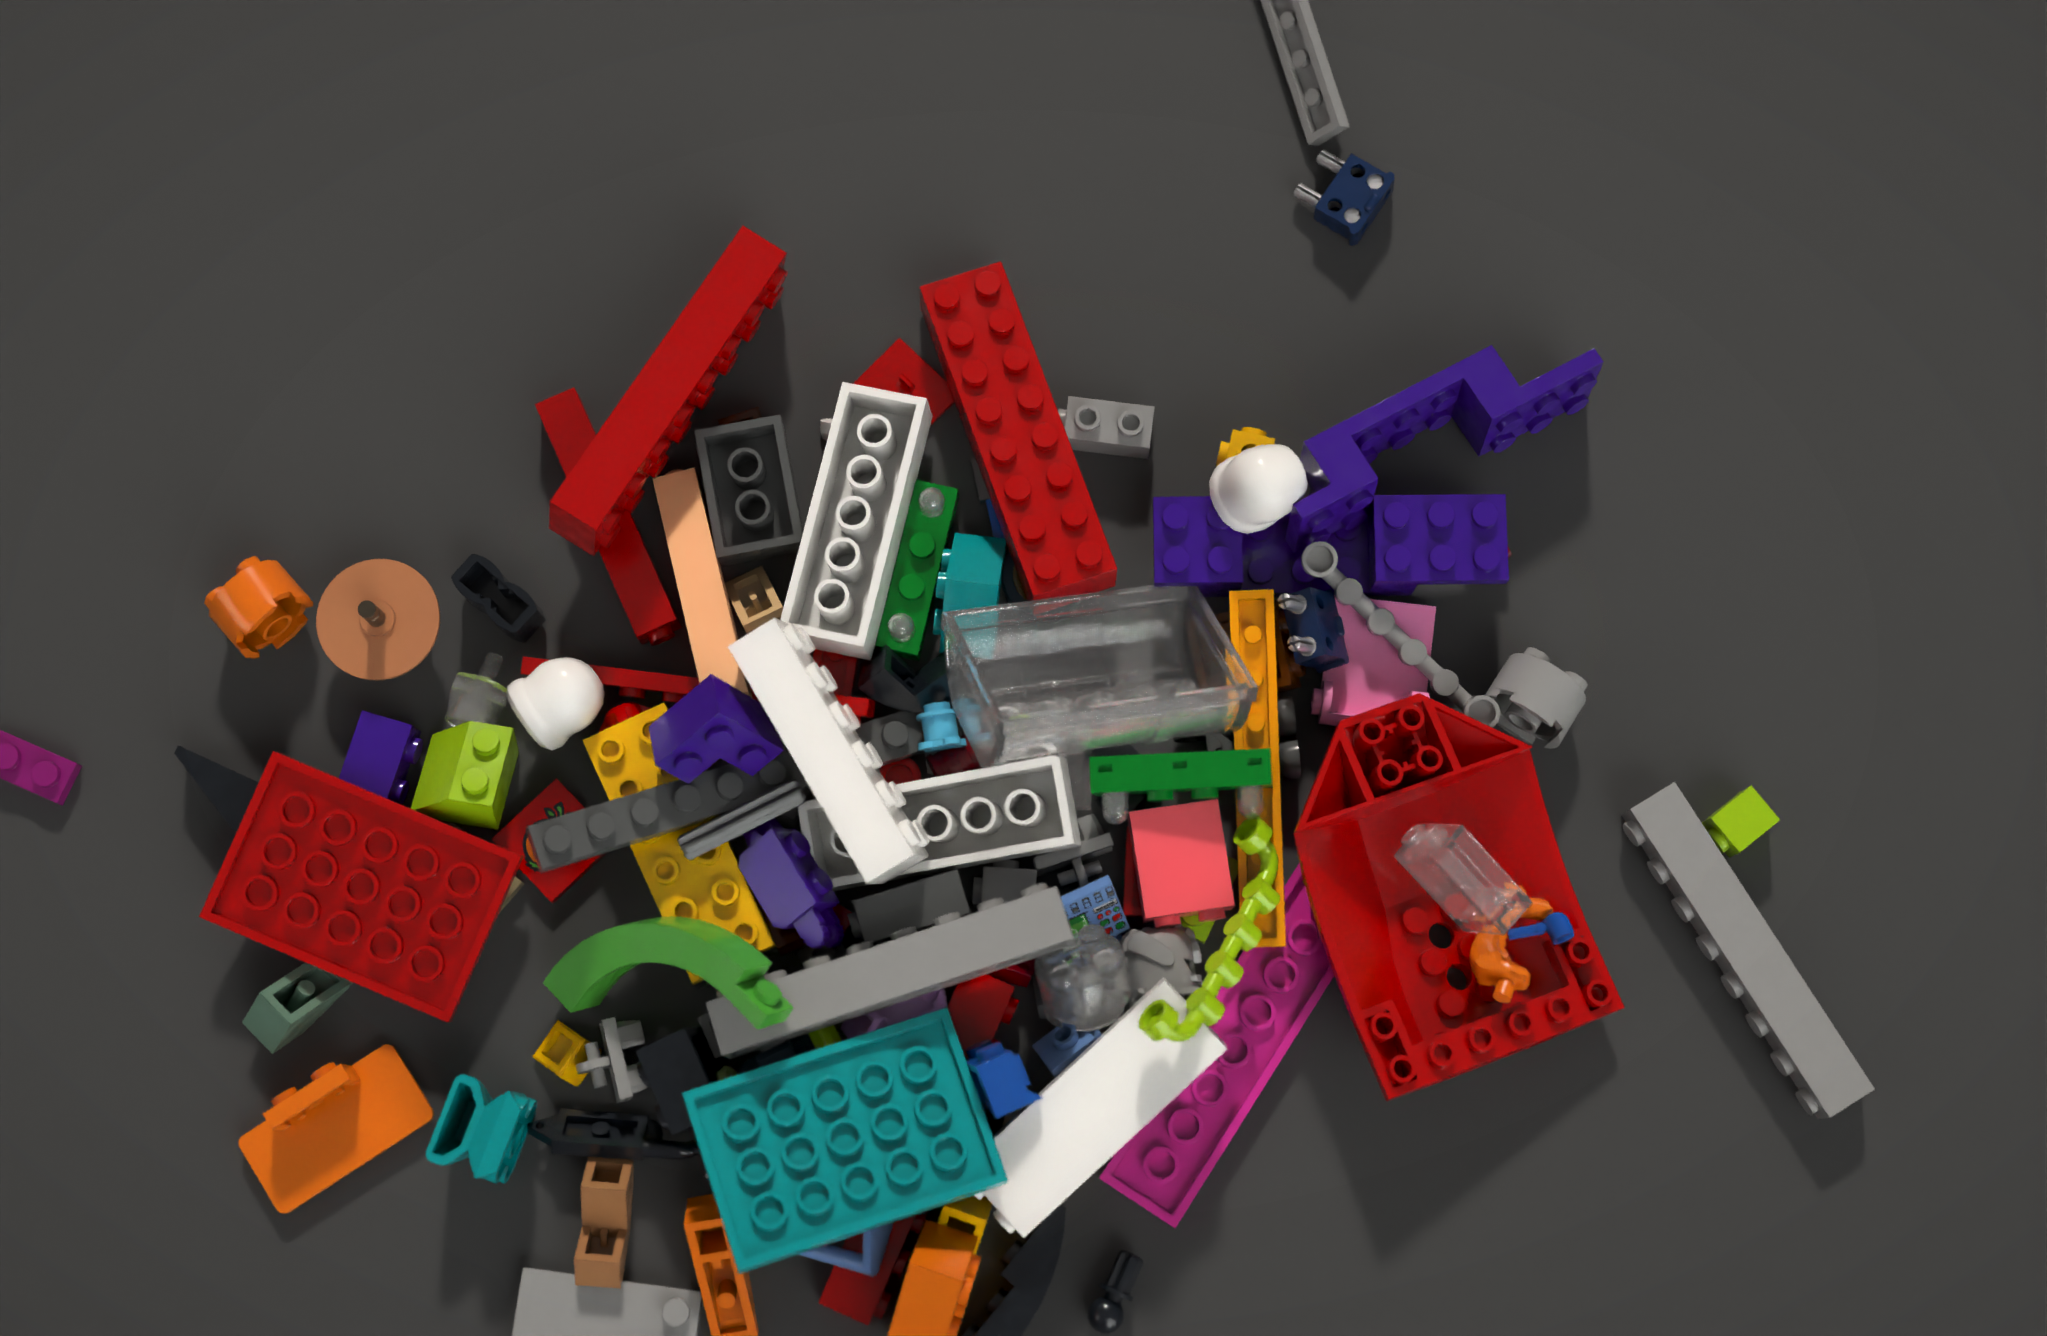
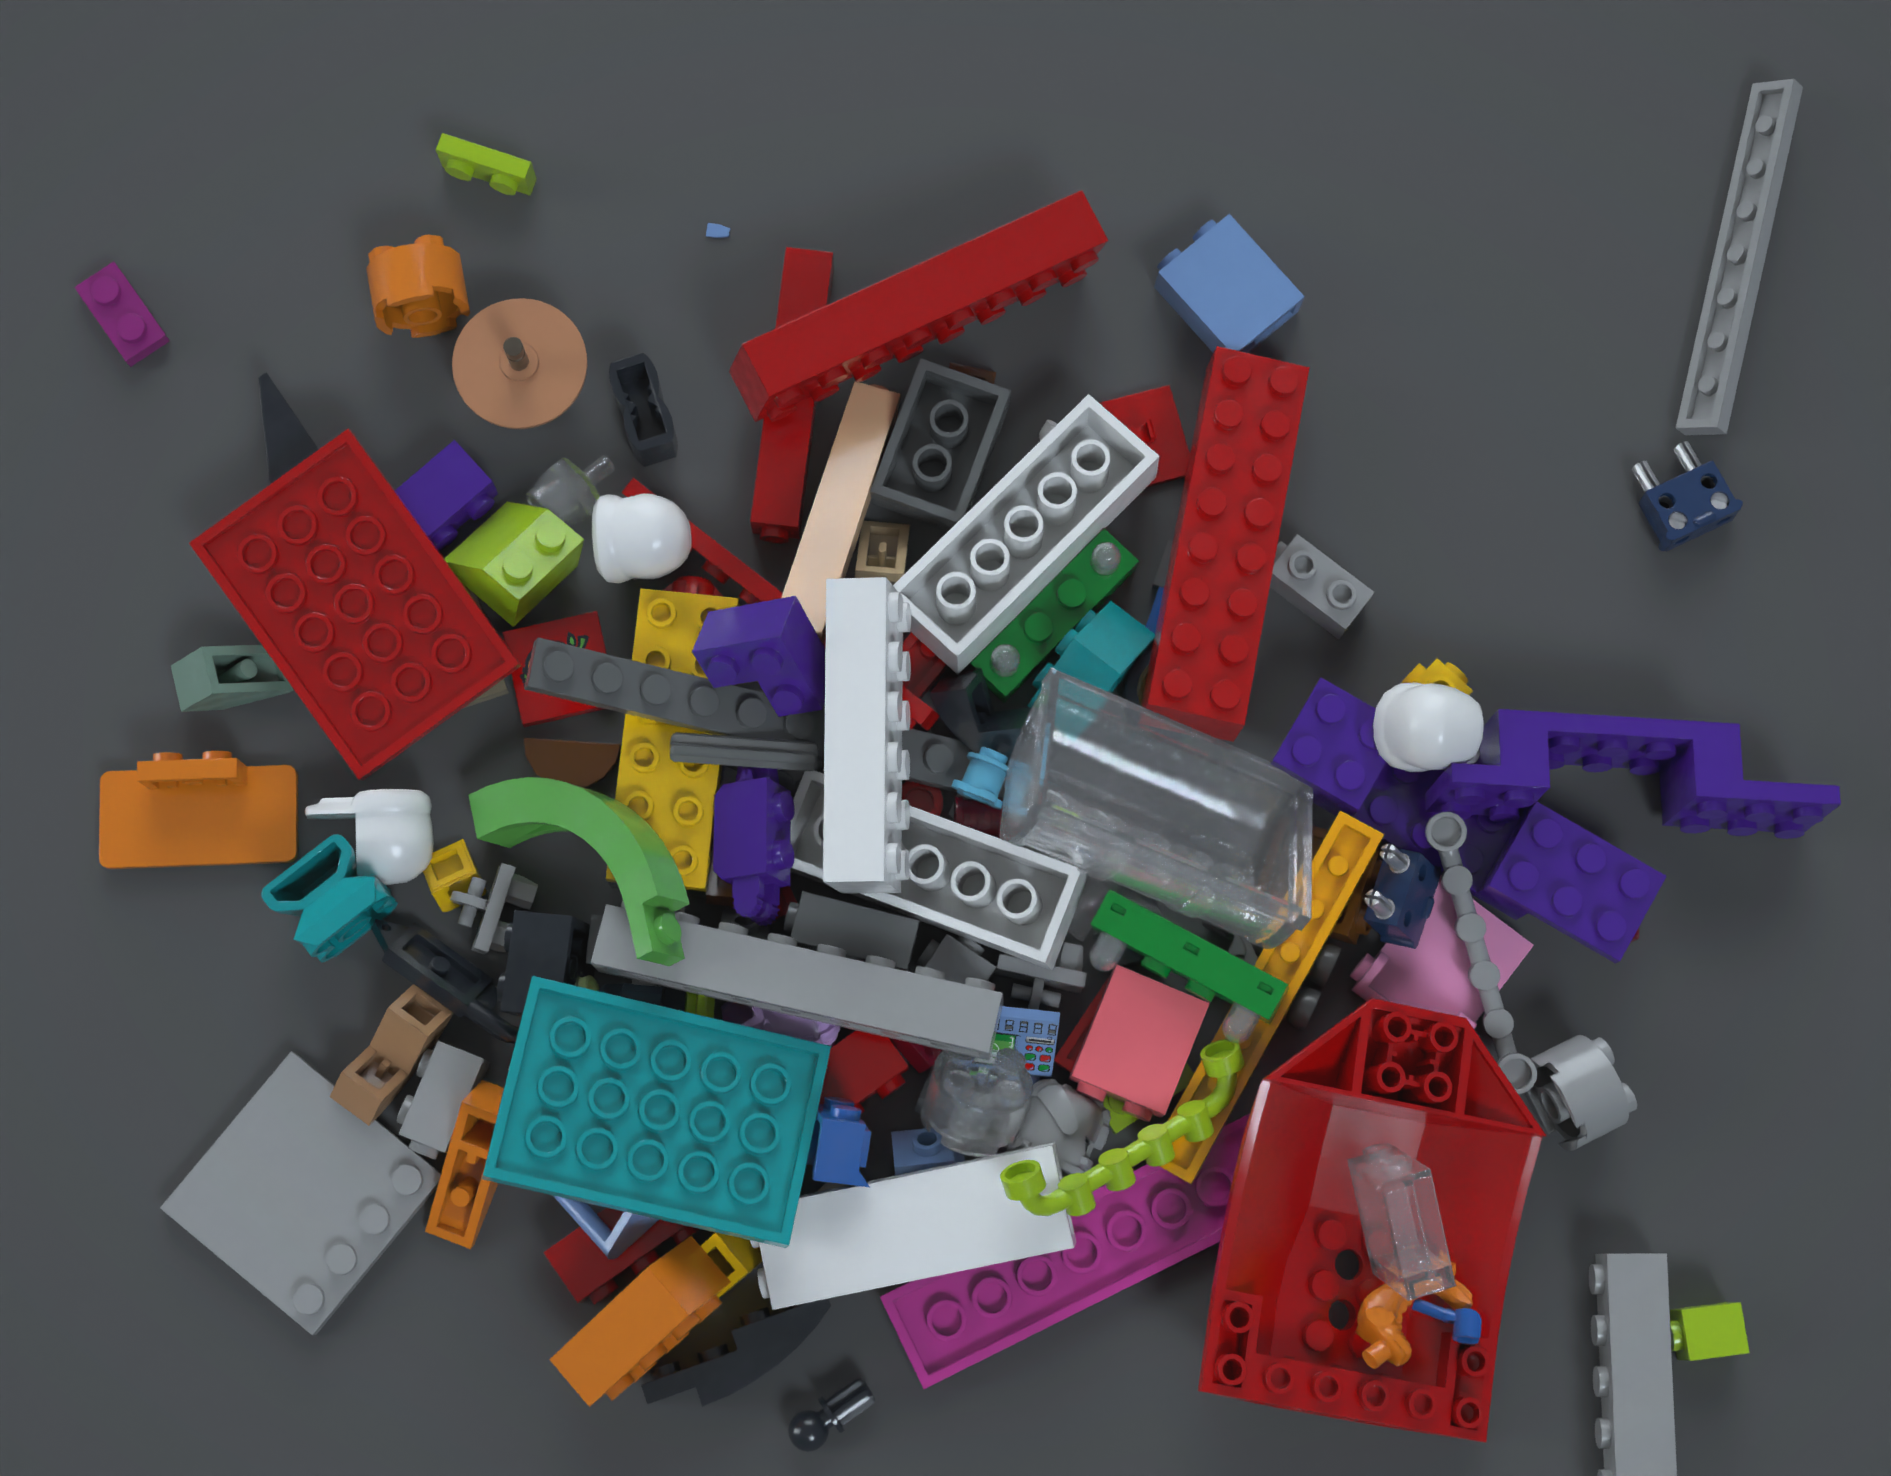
camera: 25 degrees right, 0 degrees up
(237, 482) = (501, 170): none -> lime plate
(470, 423) = (717, 231): none -> medium blue piece
(498, 1049) = (391, 831): none -> white piece
(608, 907) = (572, 761): none -> reddish brown tile
(665, 1246) = (431, 1114): none -> light grey brick
(899, 235) = (1227, 287): none -> medium blue brick

